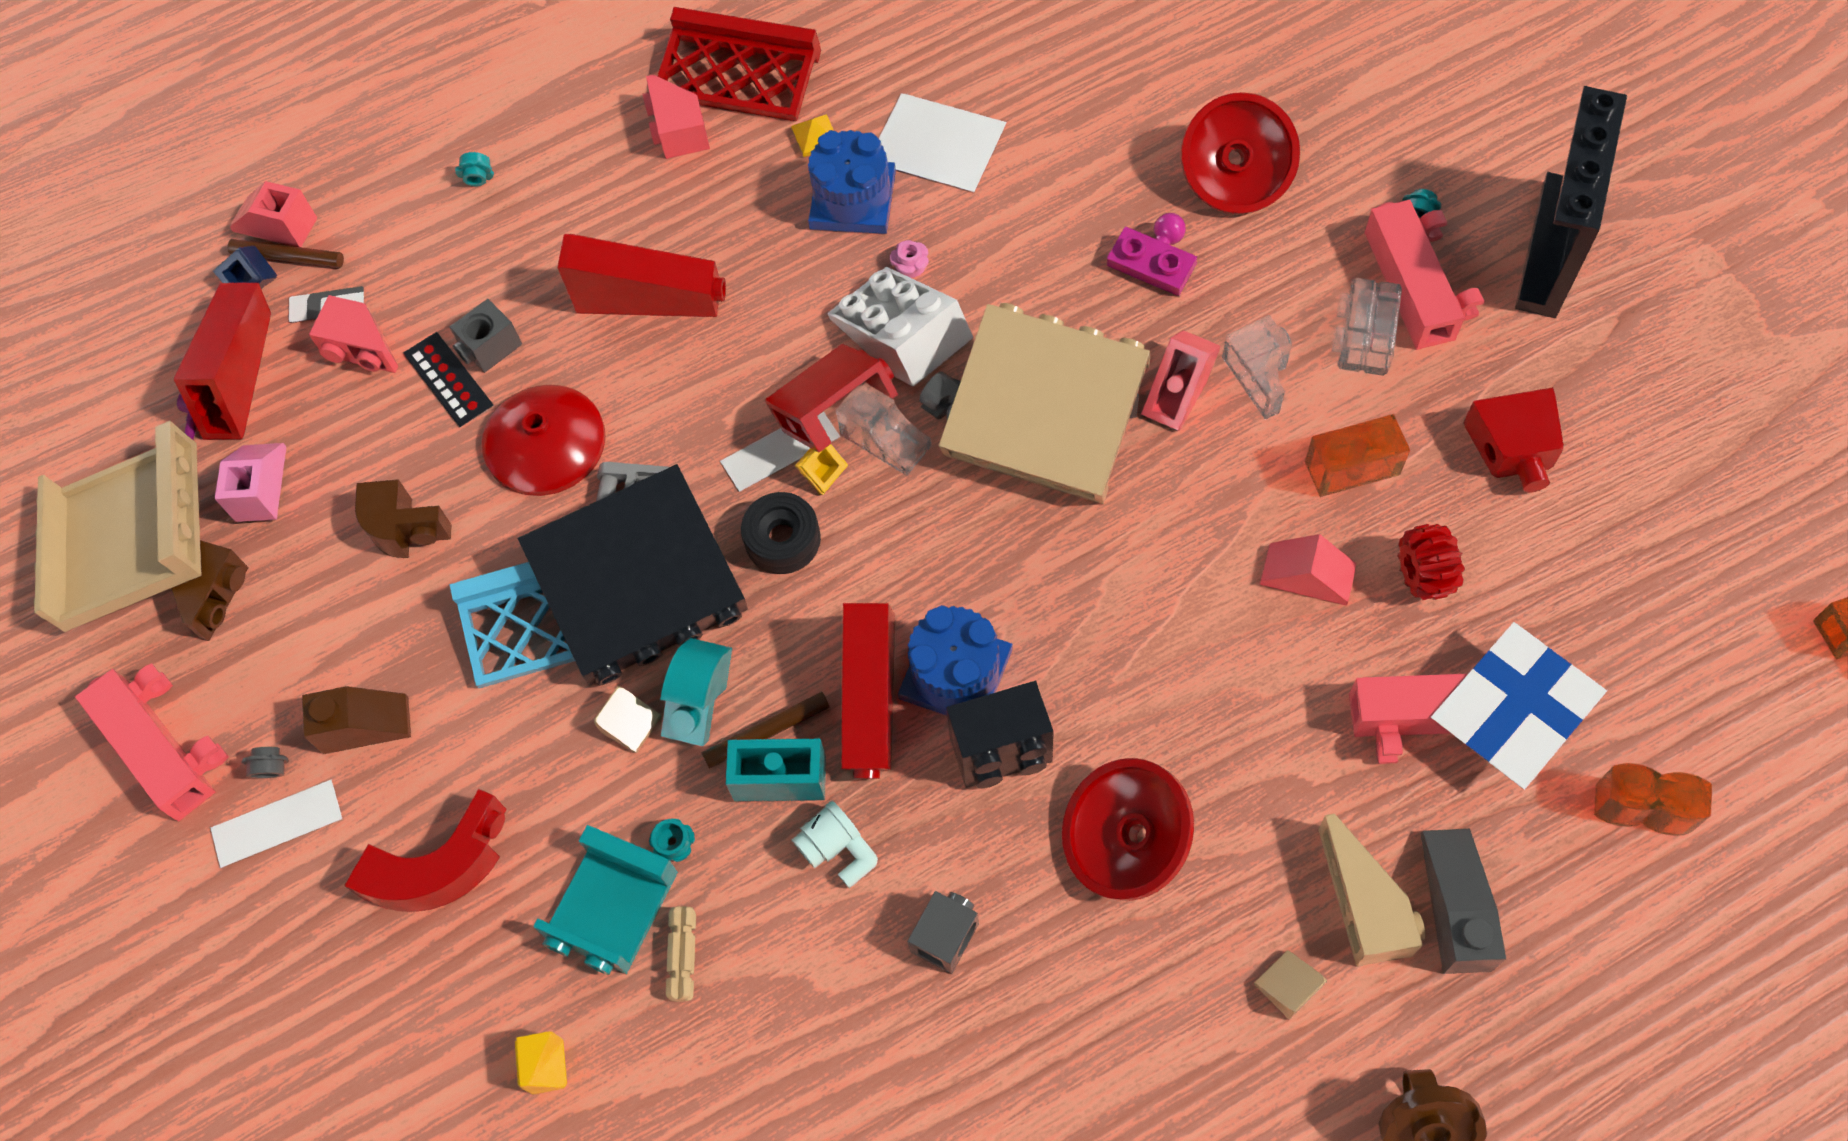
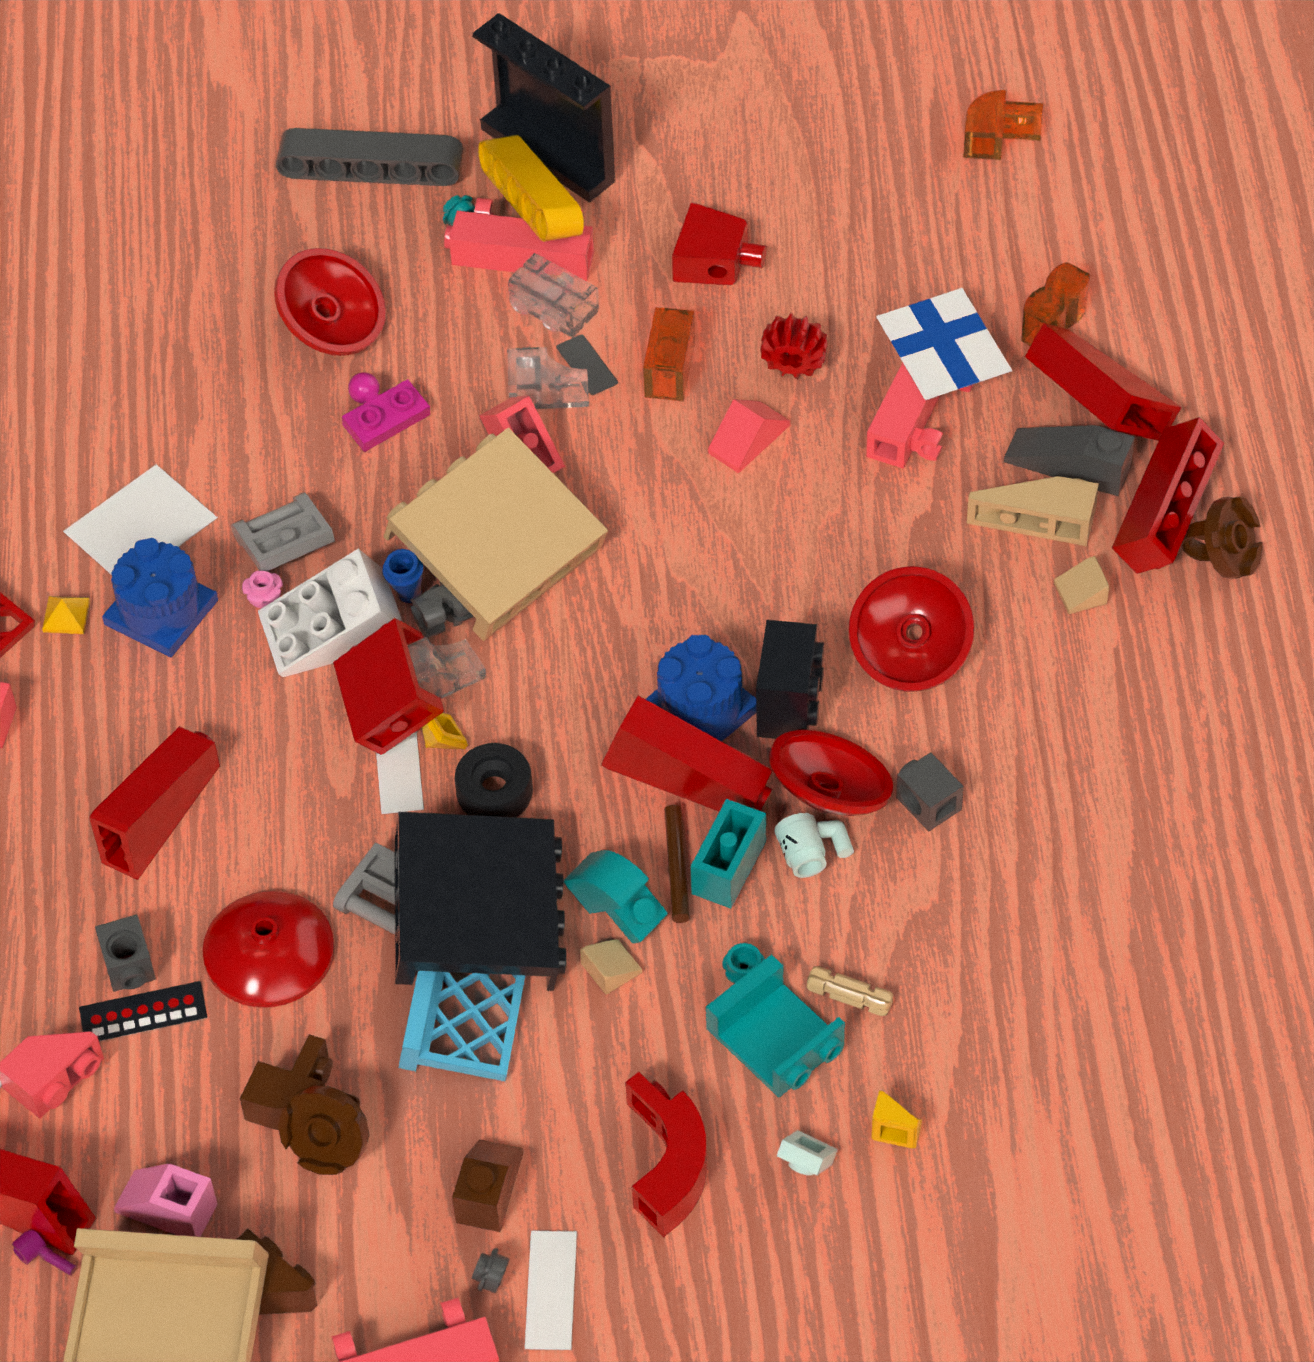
camera: 70 degrees left, 10 degrees down
(357, 564) = (324, 1129): none -> reddish brown tile
(474, 990) = (806, 1153): none -> light aqua plate
(935, 822) = (830, 773): none -> red dish
(957, 348) = (404, 574): none -> blue cone
(972, 244) = (283, 533): none -> light grey plate
(1313, 395) = (581, 355): none -> dark grey sticker
(1441, 110) = (369, 157): none -> dark grey beam
(1457, 1030) = (1168, 496): none -> red brick
(1474, 244) = (531, 188): none -> yellow beam
(1567, 895) = (1101, 383): none -> red slope

